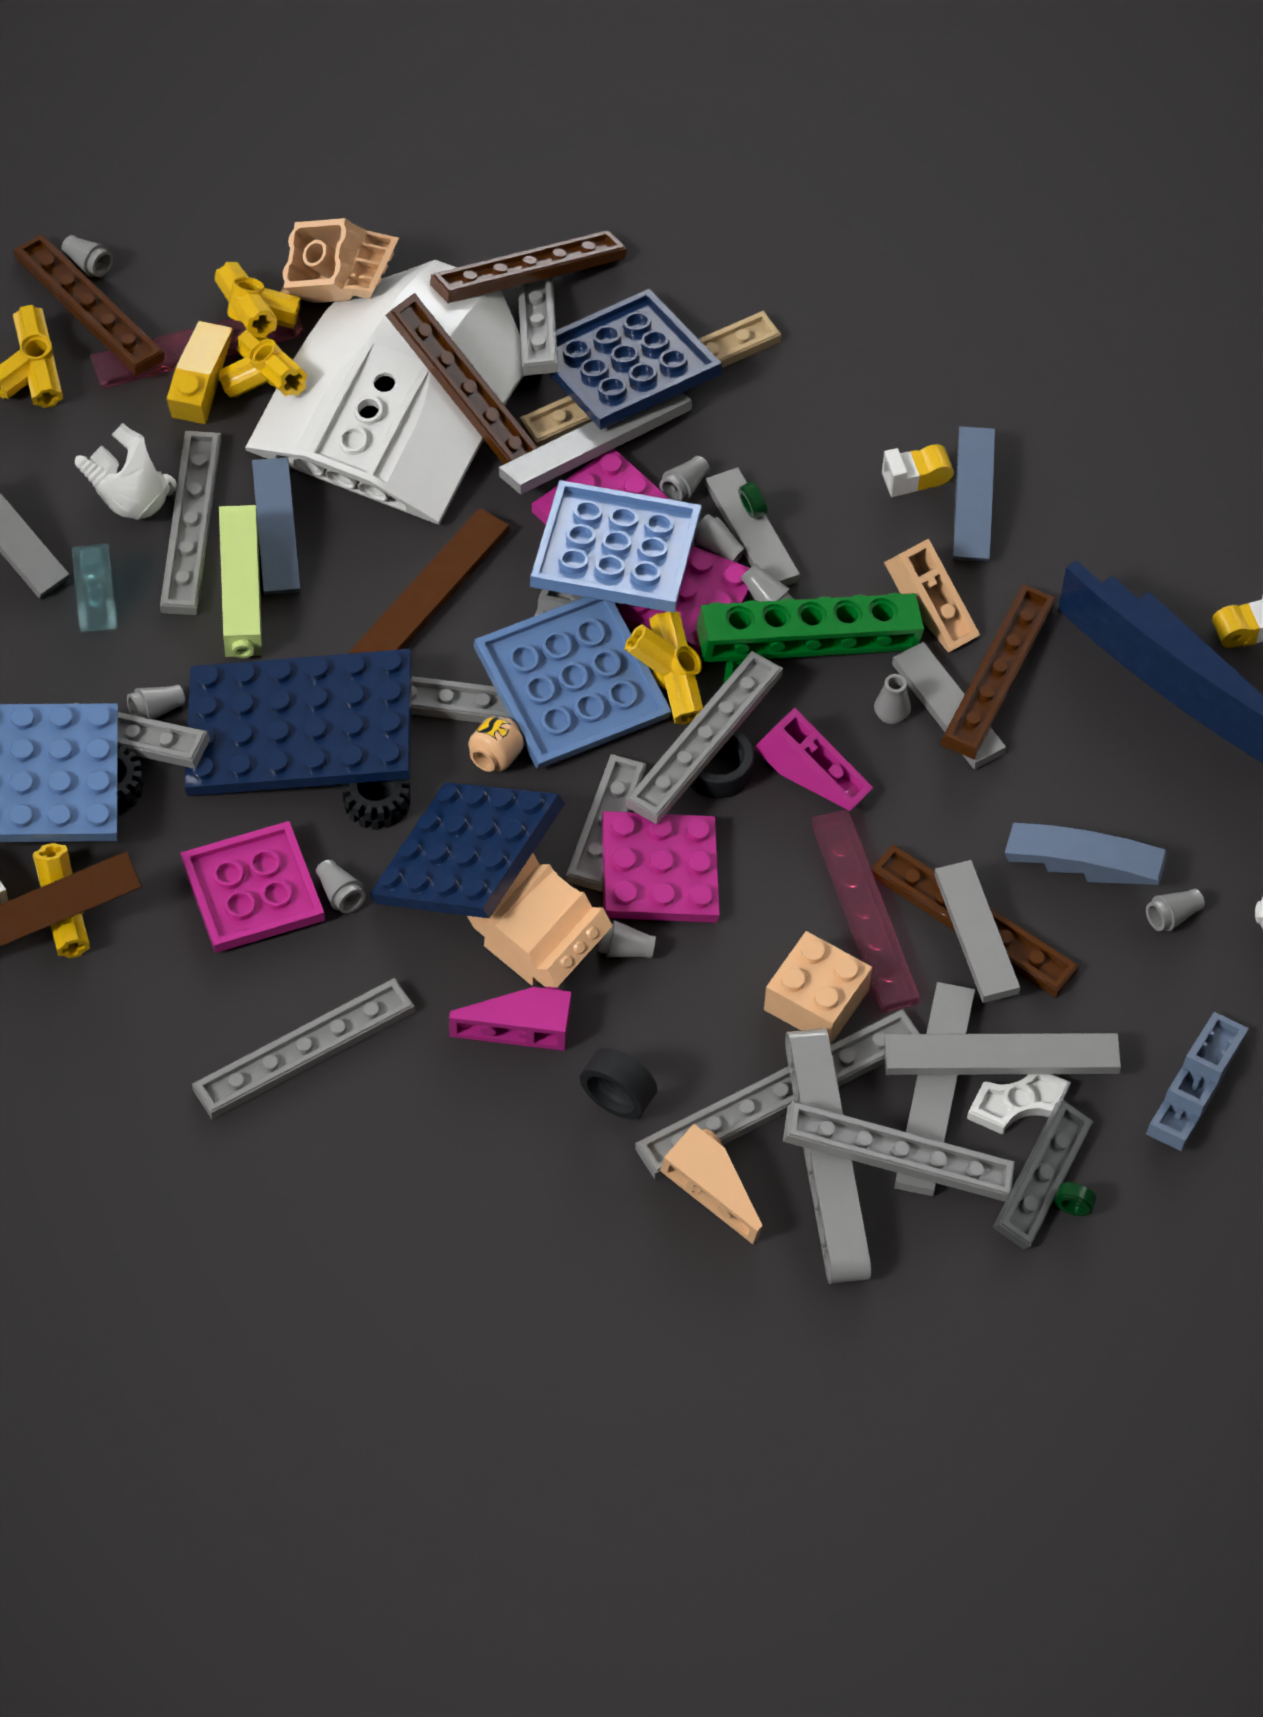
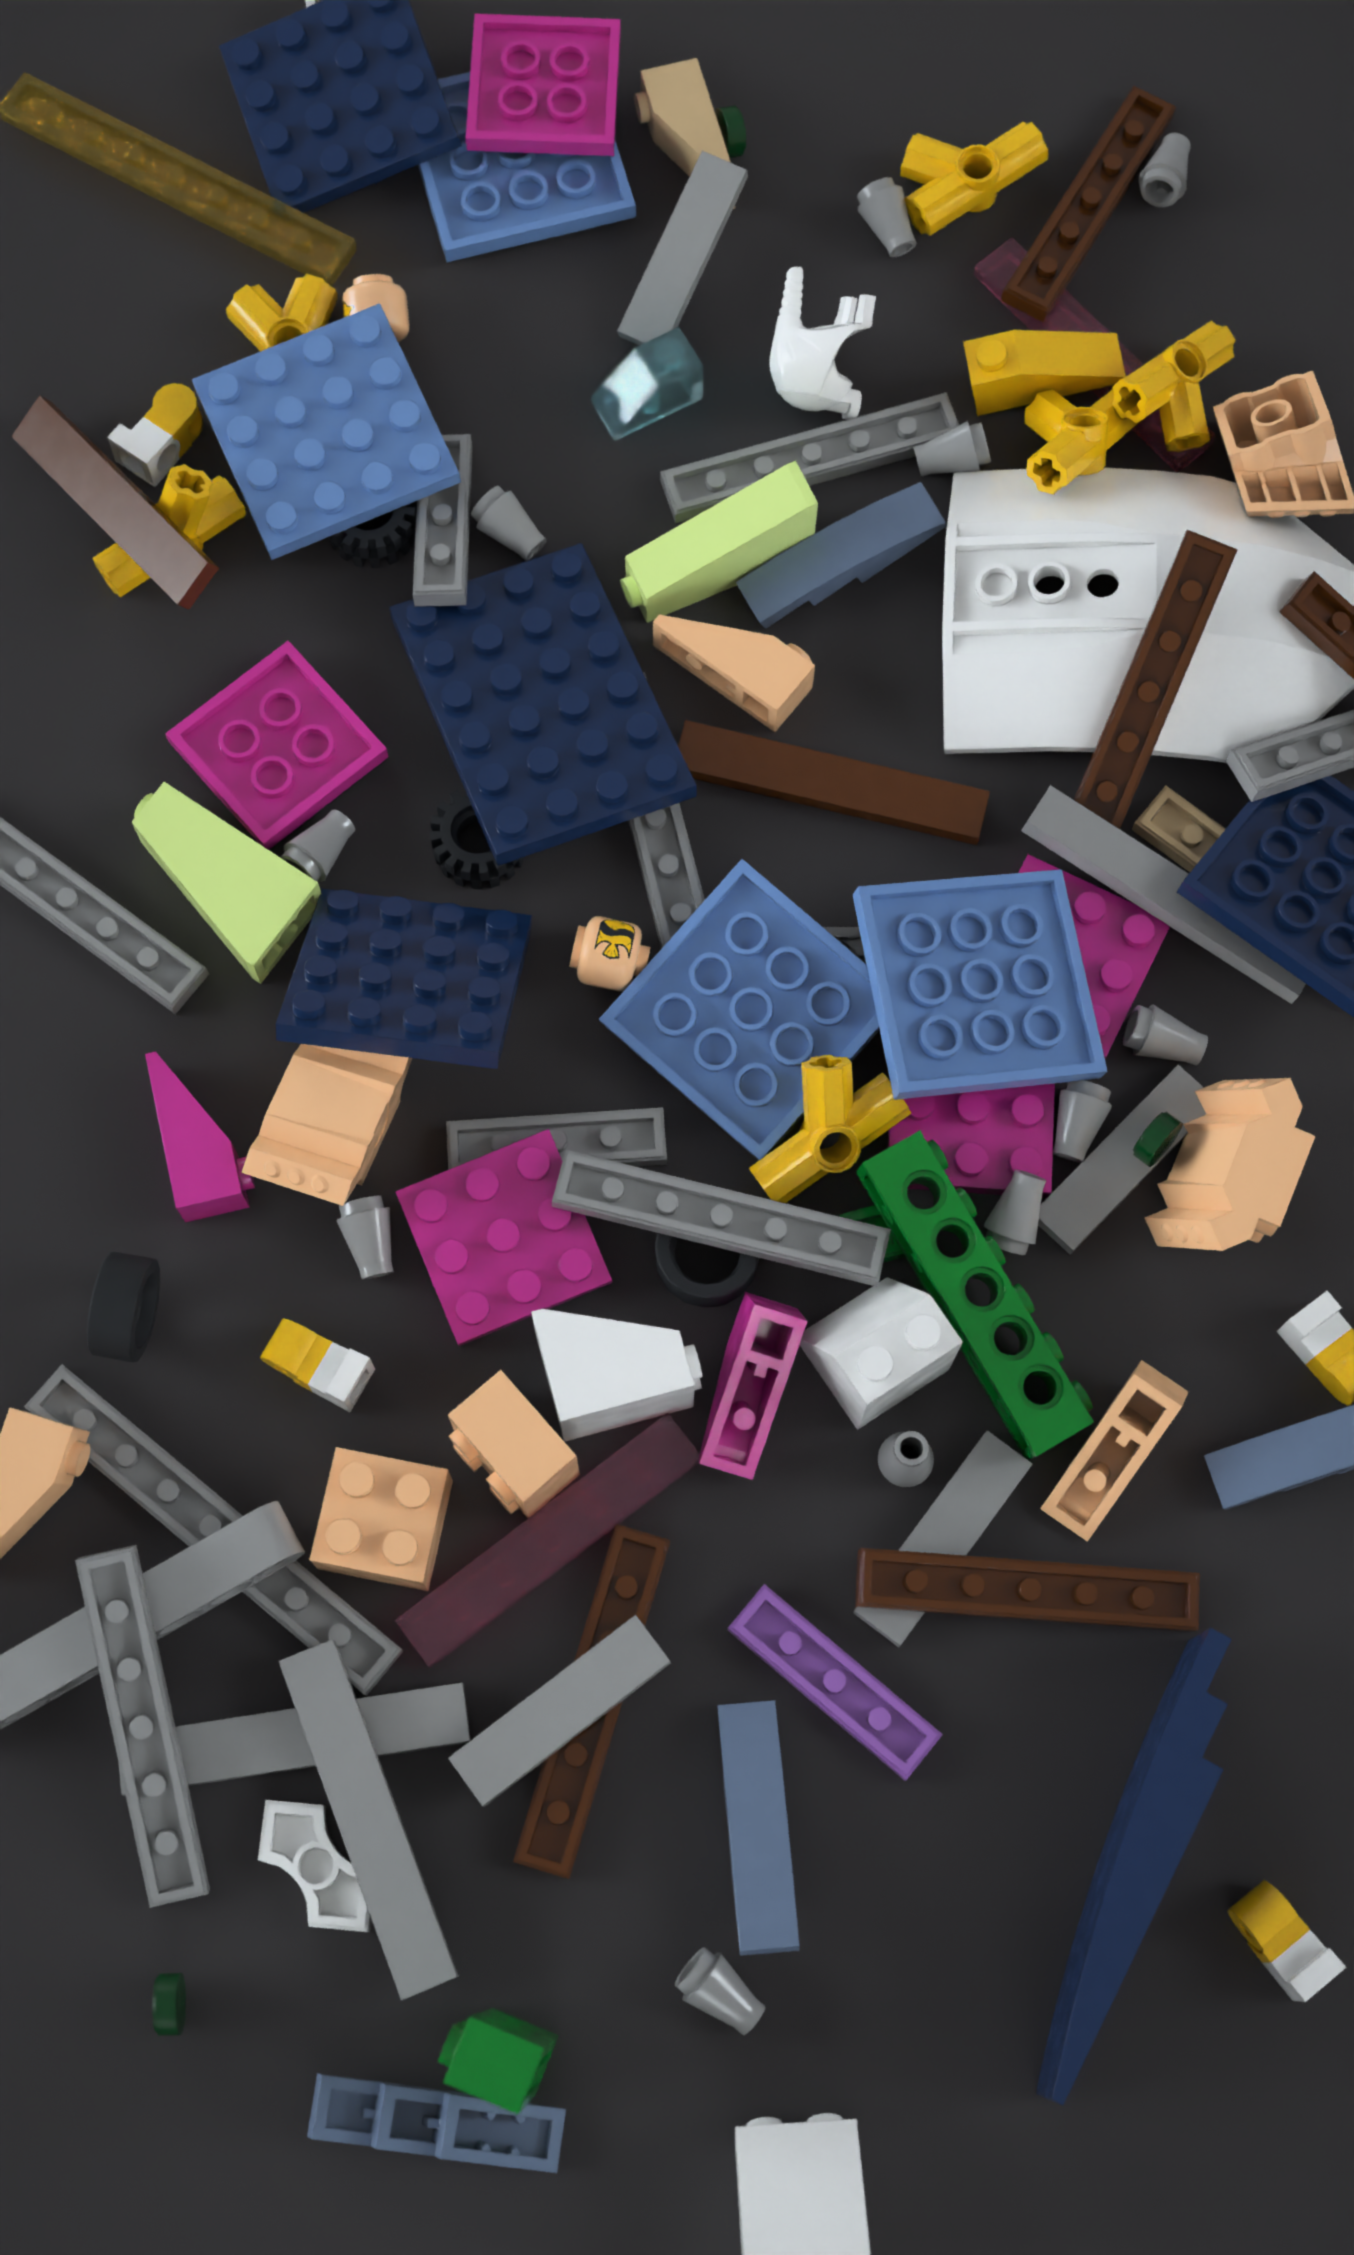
camera: 70 degrees right, 15 degrees up
(36, 414) = (886, 214): none -> light grey cone
(233, 437) = (954, 451): none -> light grey cone
(330, 605) = (742, 665): none -> light nougat slope
(337, 943) = (231, 880): none -> yellowish green slope
(700, 994) = (318, 1364): none -> leg
(775, 830) = (613, 1371): none -> white slope
(791, 464) = (1234, 1167): none -> light nougat slope
(804, 894) = (513, 1444): none -> light nougat piece
(826, 679) = (881, 1348): none -> white slope
(1012, 792) = (834, 1682): none -> medium lavender tile
(1042, 1174) = (200, 1942): dark grey tile -> none
(1184, 974) = (497, 2058): none -> green brick

